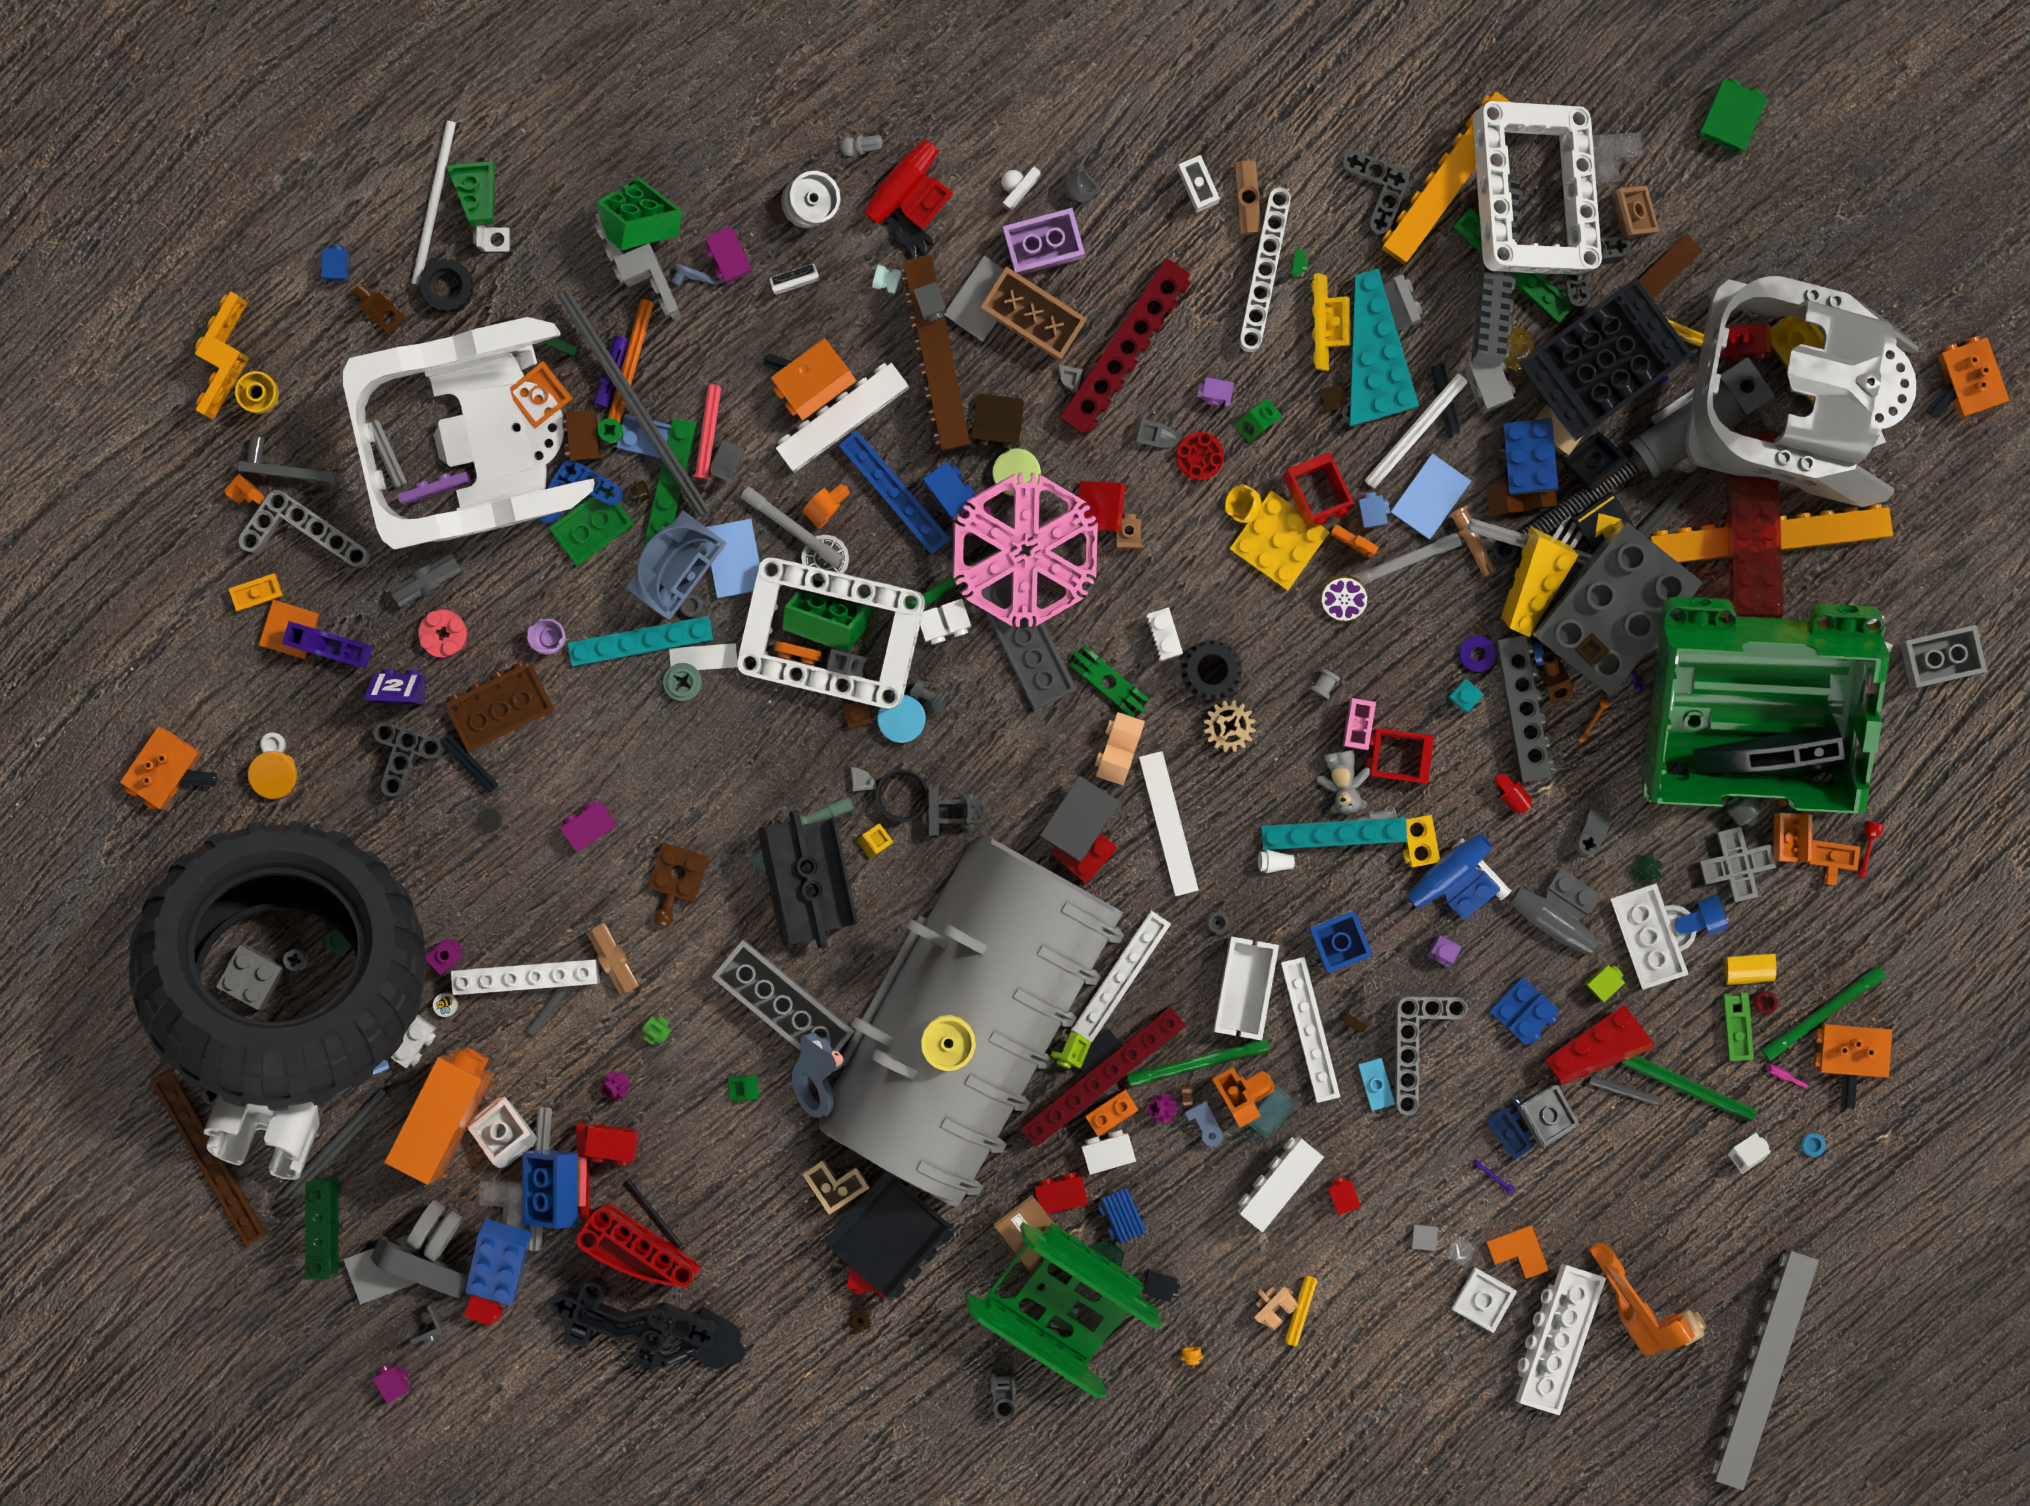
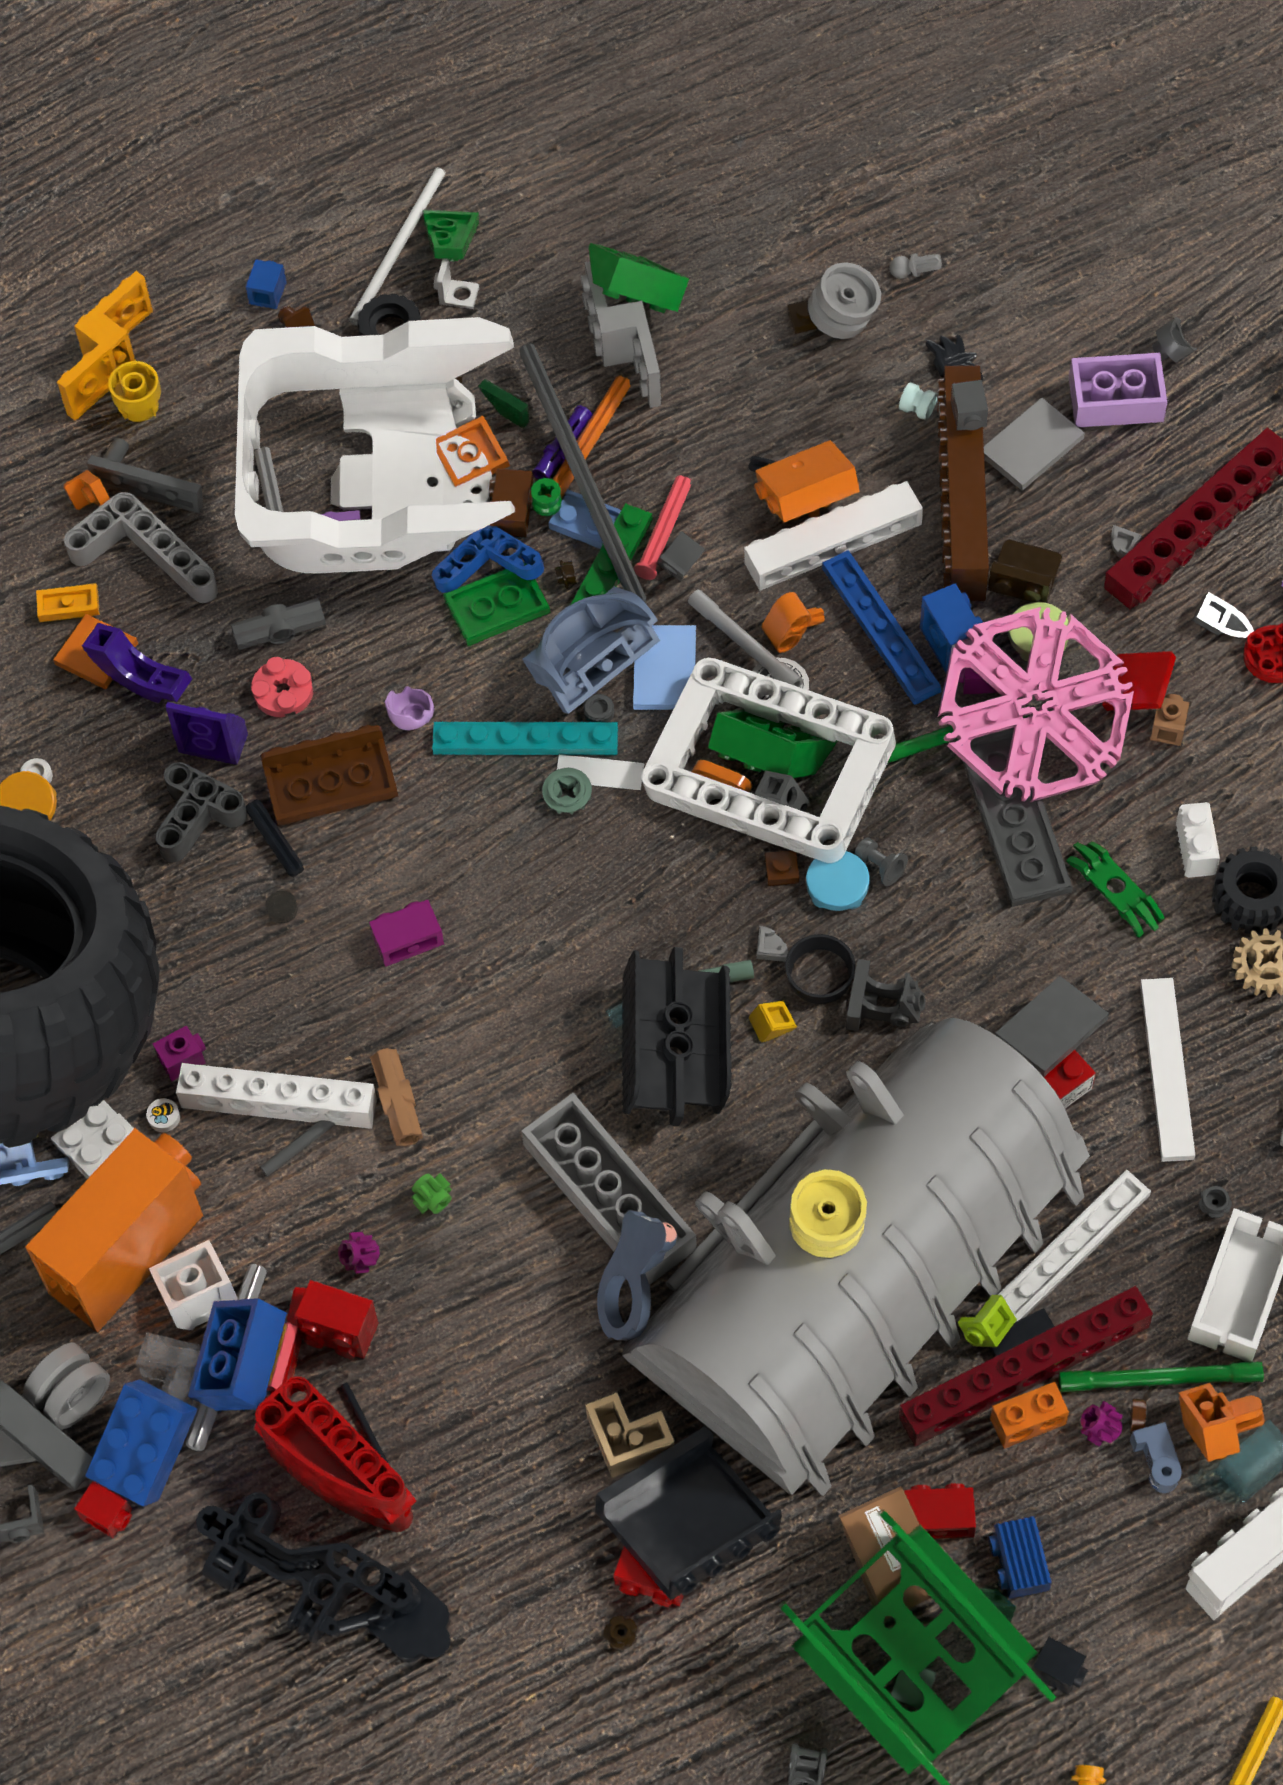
camera: 15 degrees right, 25 degrees down
(683, 271) = (684, 361): sand blue bar -> none
(684, 888) = (510, 1030): reddish brown plate -> none
(728, 255) = (732, 347): magenta brick -> none
(743, 1088) = (530, 1293): green slope -> none
(794, 279) = (806, 388): slope -> none
(910, 189) = (966, 314): red plate -> none
(945, 621) = (916, 782): white piece -> none
(1018, 186) = (1098, 333): white tile -> none
(1032, 313) = (1091, 458): medium nougat brick -> none
(1108, 1152) = (1015, 1469): white brick -> none
(1120, 748) = (1121, 957): light nougat brick -> none
(1281, 1299) = (1217, 1724): light nougat hips -> none

